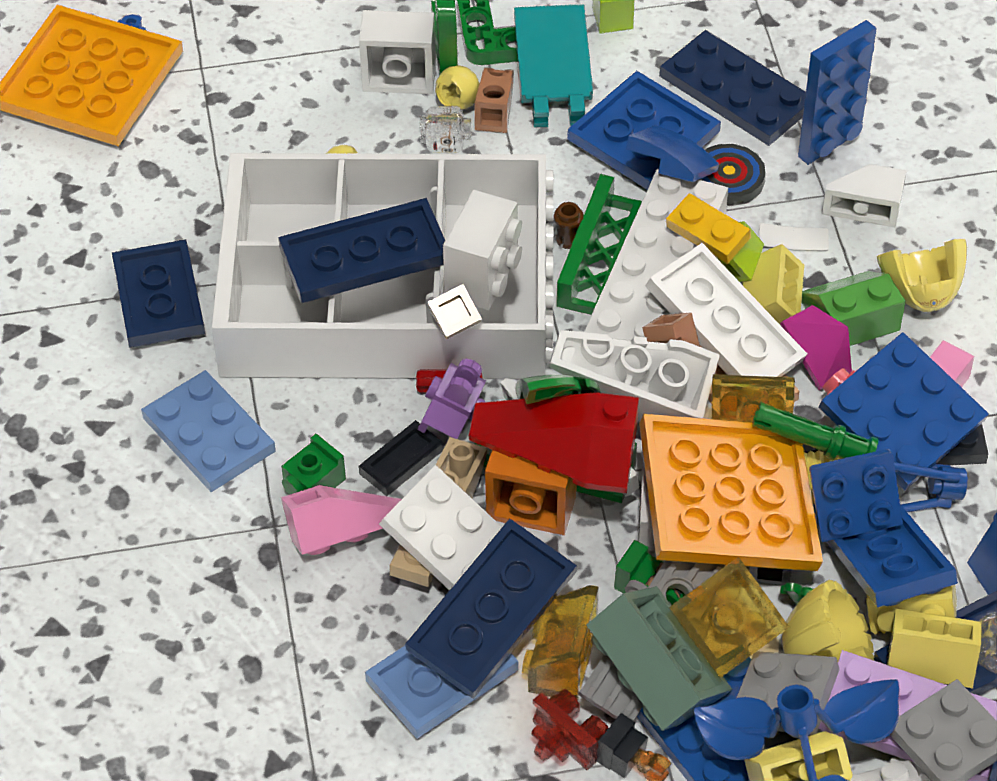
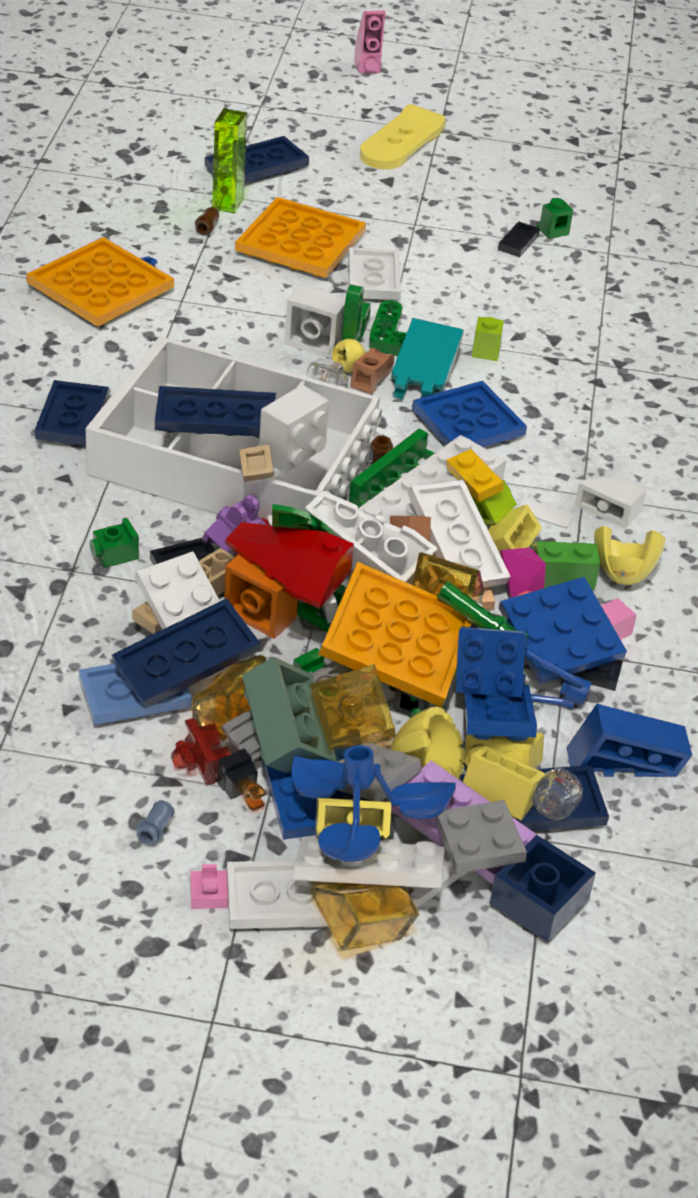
camera: 15 degrees right, 10 degrees down
(208, 430) = (59, 501): medium blue plate -> none
(333, 515) = (106, 569): bright pink slope -> none
(678, 154) = (477, 429): blue slope -> none
(735, 87) = (553, 413): dark blue plate -> none
(738, 170) = (522, 459): pearl dark grey tile -> none
(836, 92) = (613, 420): blue plate -> none

